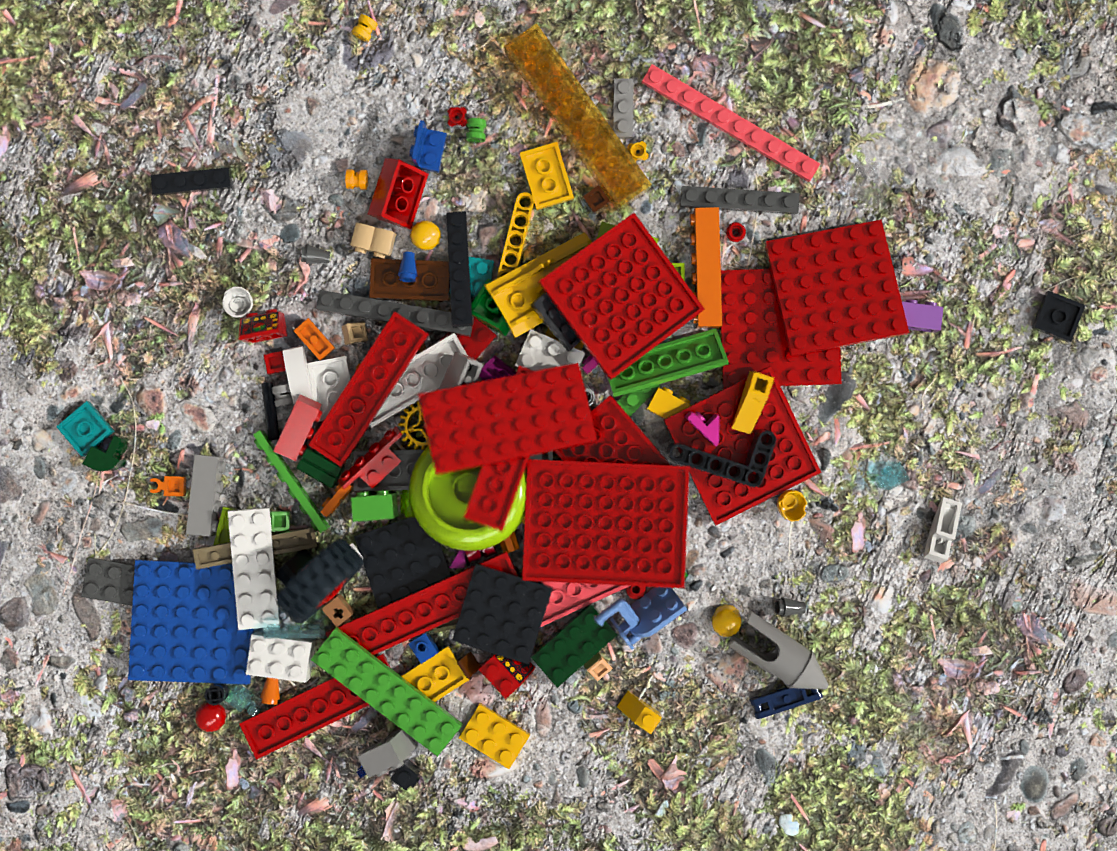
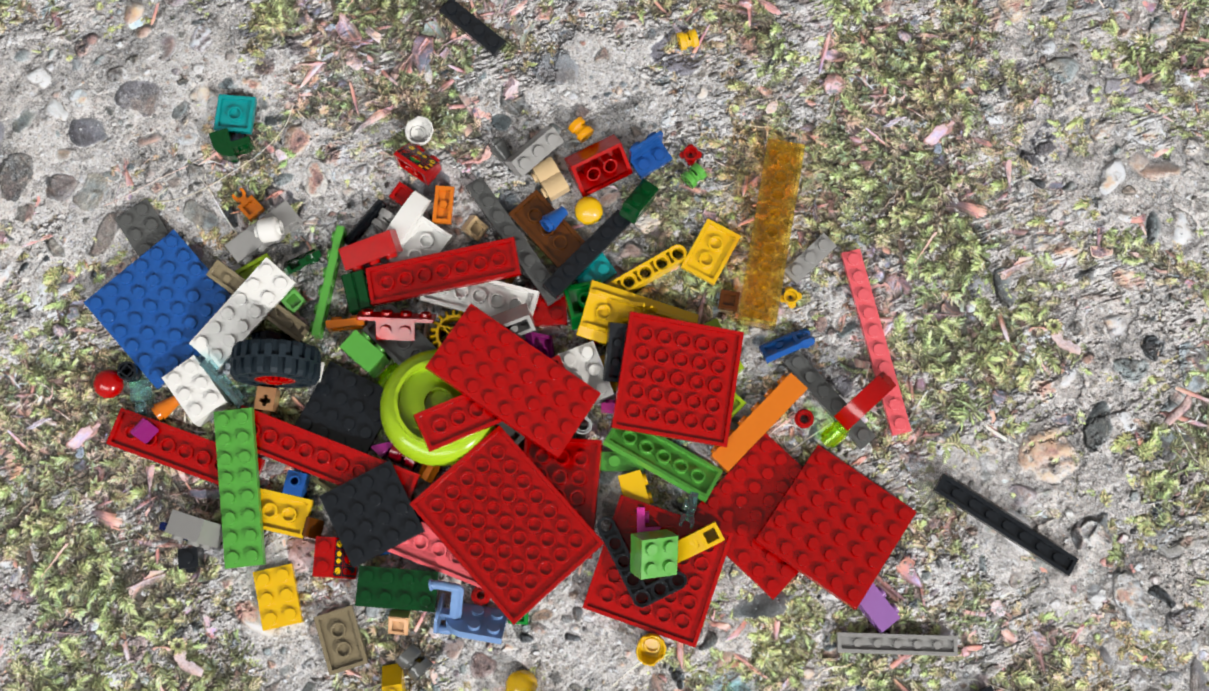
camera: 50 degrees right, 10 degrees down
(207, 489) = (269, 229): none -> white head
(255, 485) = (297, 263): none -> dark green wing
(275, 722) = (144, 430): none -> magenta slope
(340, 231) = (534, 151): none -> light grey brick
(456, 191) = (638, 201): none -> dark green brick
(570, 719) = (341, 640): none -> dark tan plate
(638, 682) = (414, 662): none -> dark grey wheel
(670, 190) = (786, 344): none -> blue hinge
(721, 378) = (689, 506): none -> clear light blue plate
(733, 439) = (654, 554): none -> bright green brick
(769, 221) = (834, 434): none -> clear neon green brick
(770, 174) = (865, 400): none -> red arch
(951, 166) = (1005, 525): none -> black plate
(956, 327) = (896, 644): none -> light grey plate

